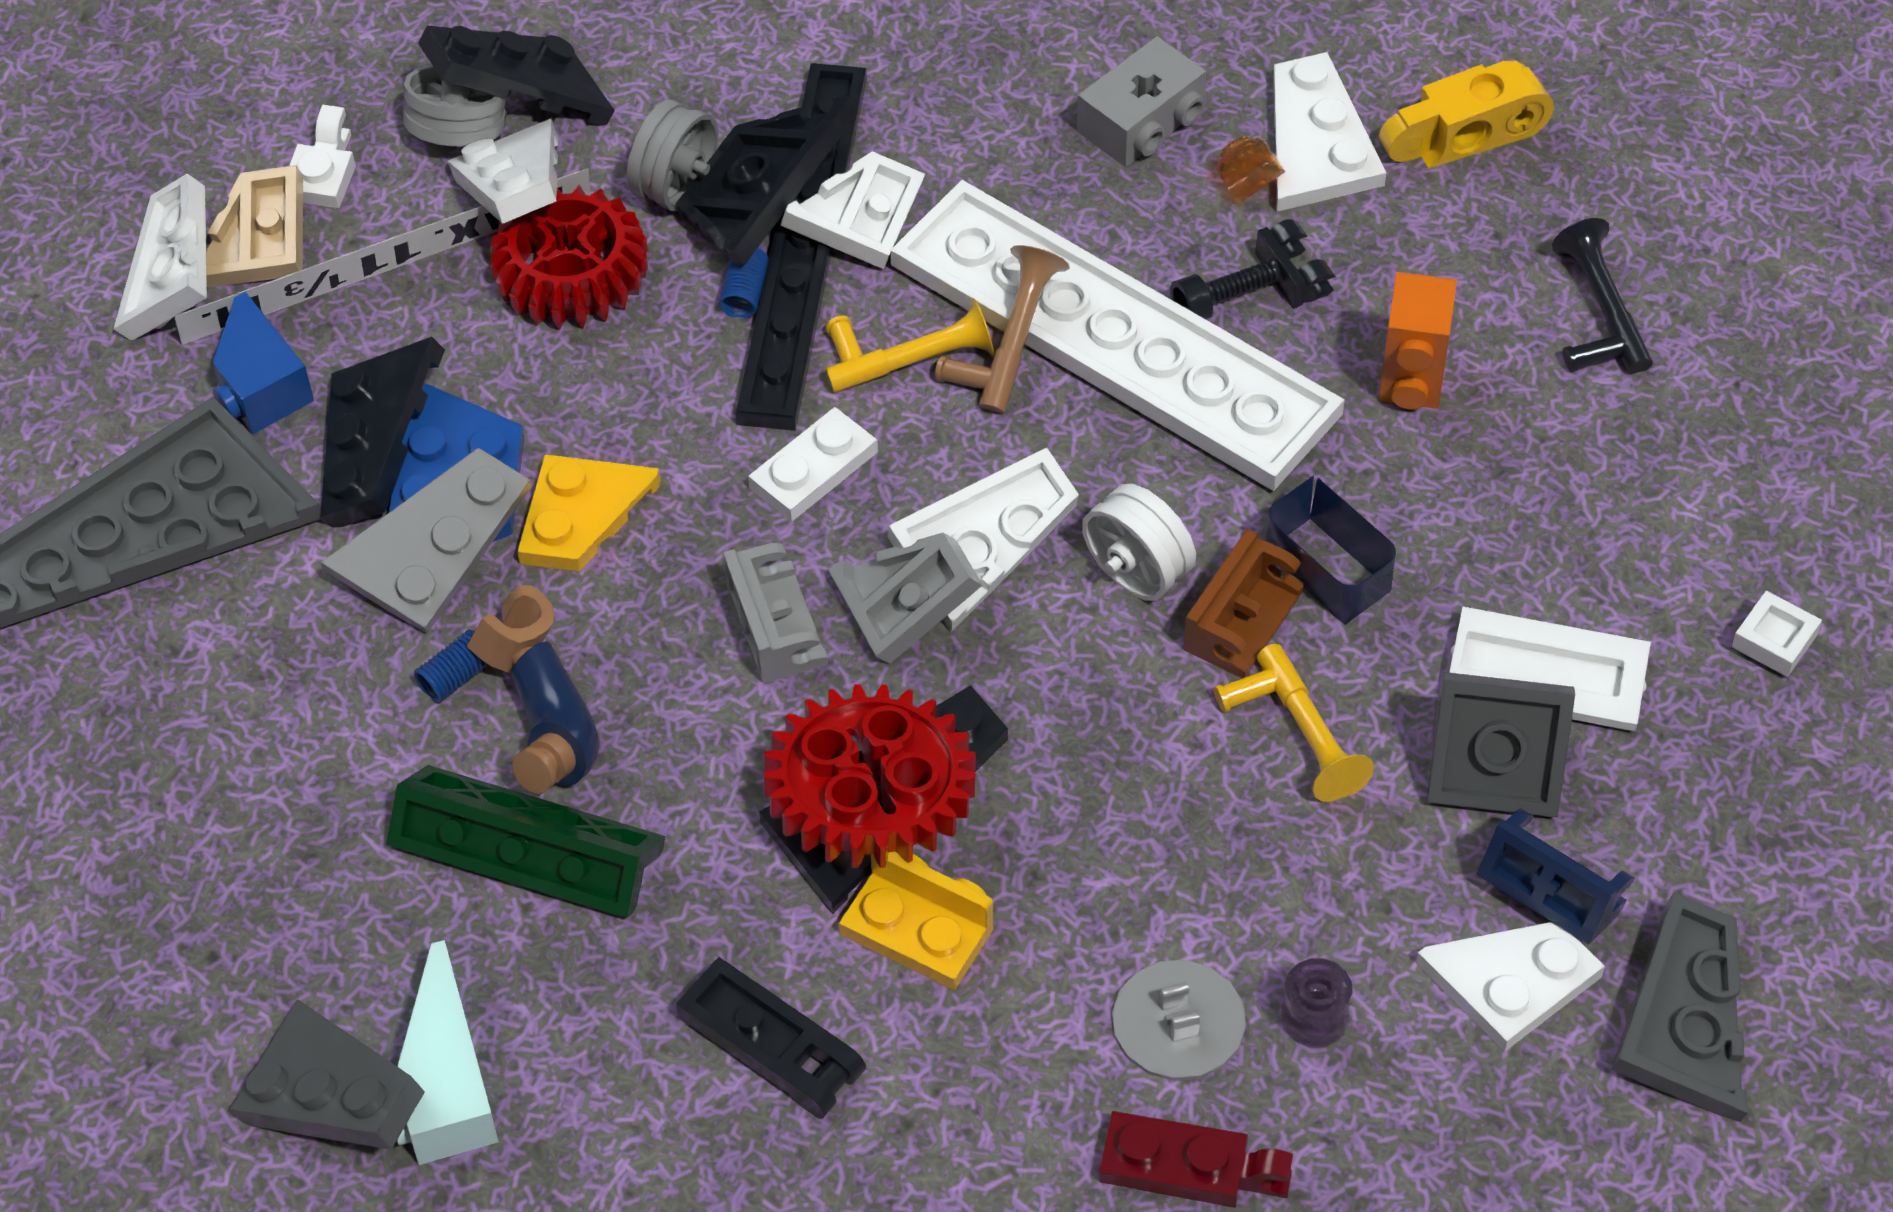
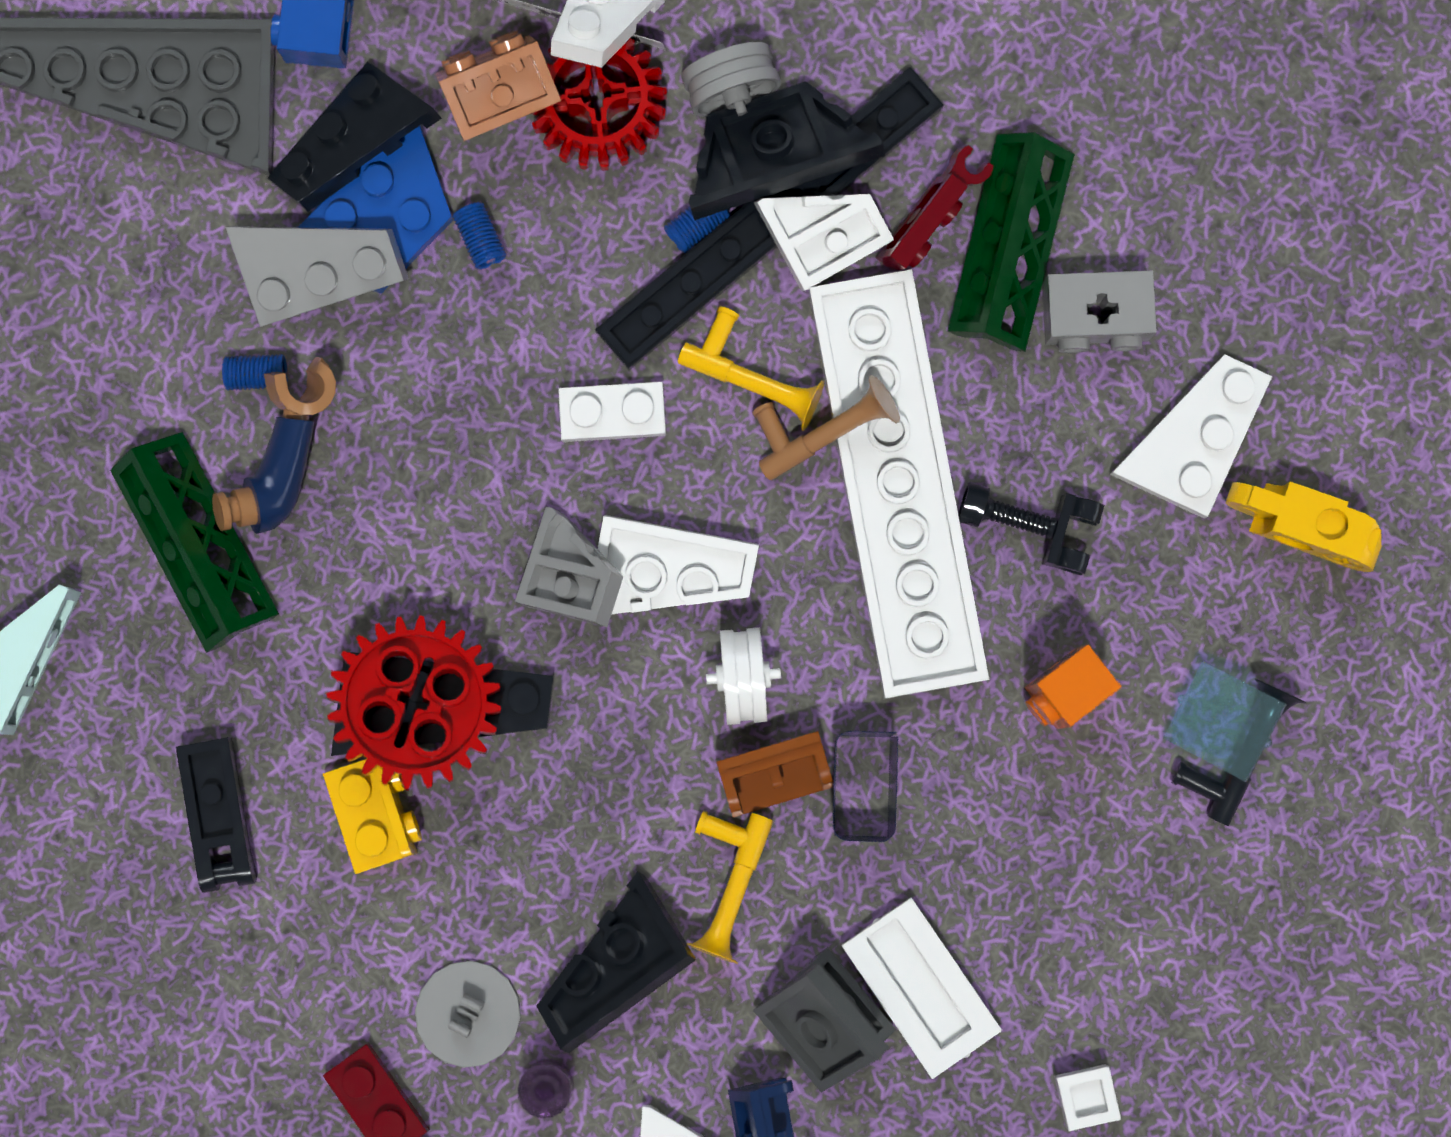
camera: 40 degrees right, 30 degrees up
(473, 280) = (497, 84): none -> nougat bracket
(541, 406) = (479, 257): none -> blue piece
(578, 508) = (435, 314): yellow wing -> none
(773, 612) = (481, 511): light grey hinge -> none
(935, 137) = (935, 208): none -> dark red plate
(1018, 113) = (1004, 235): none -> dark green fence
(1247, 167) = (1117, 431): clear orange plate -> none
(1274, 854) = (618, 968): none -> black wing
(1563, 287) = (1225, 721): none -> clear light blue piece

